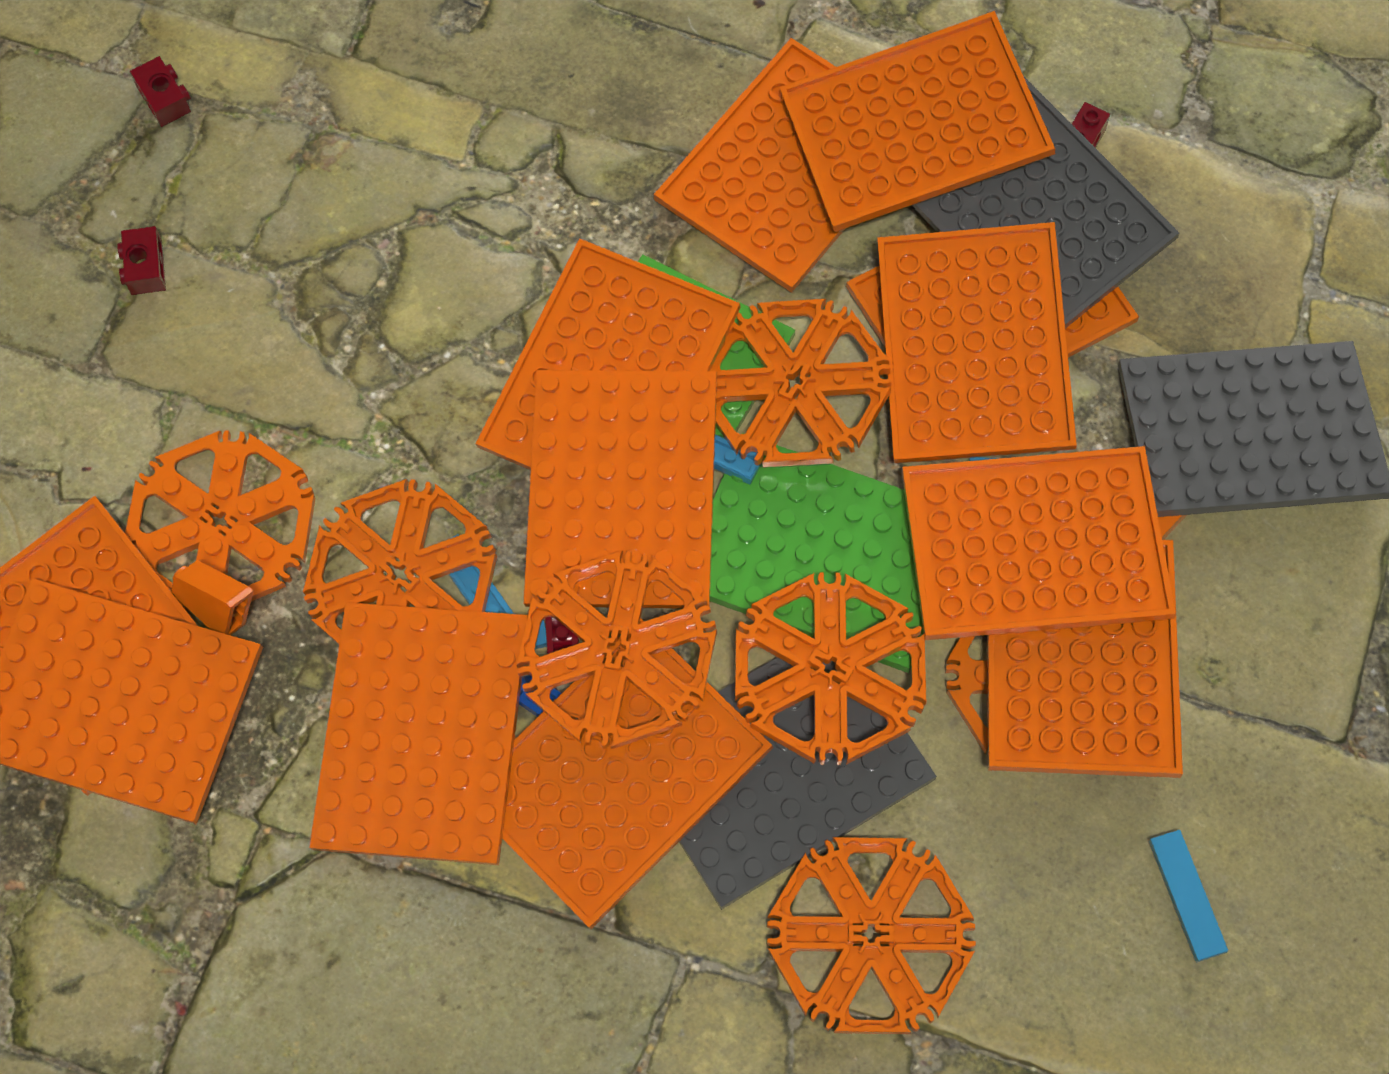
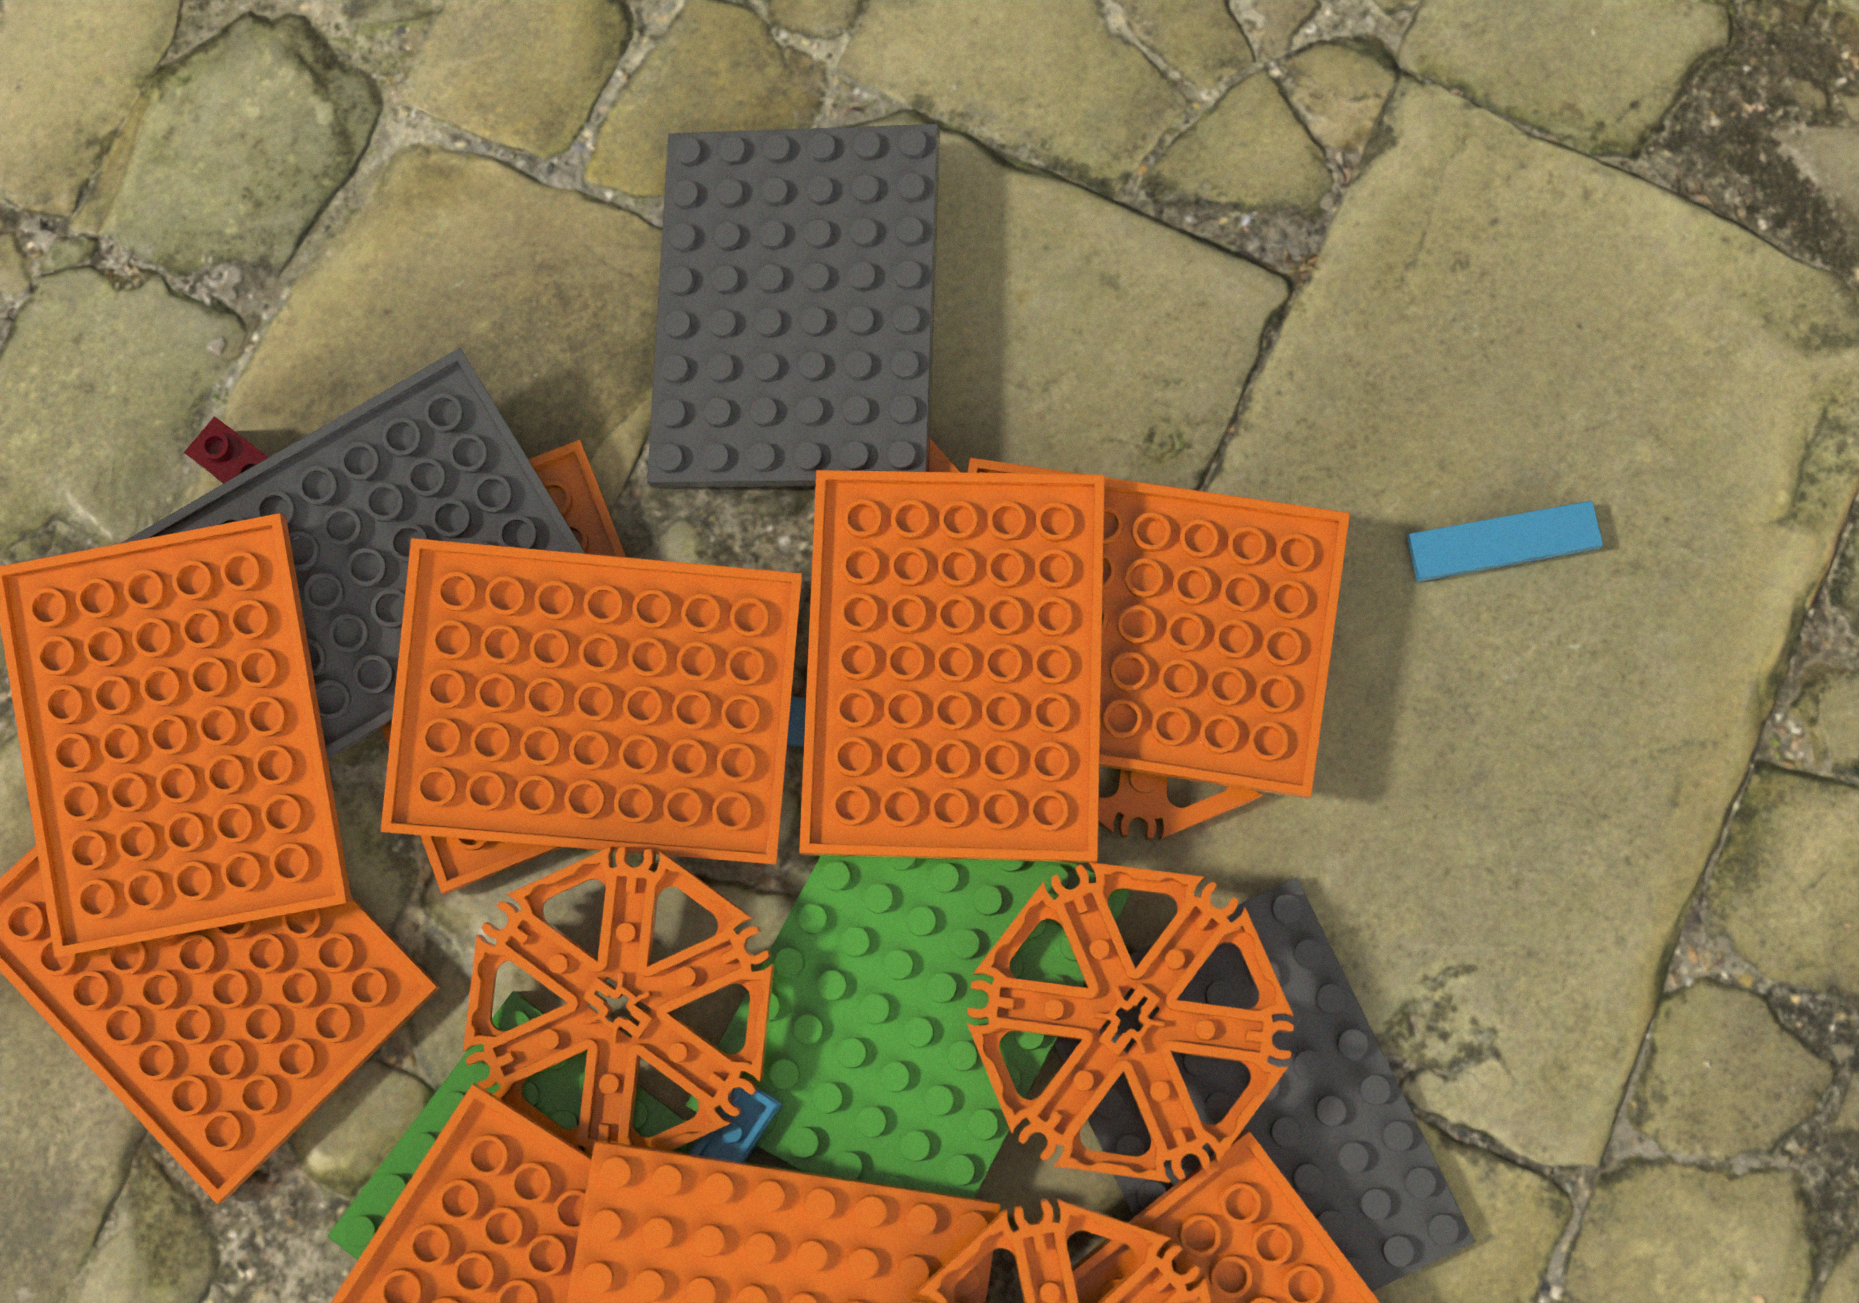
camera: 85 degrees left, 10 degrees up
(883, 914) = (1560, 1040): orange plate -> none

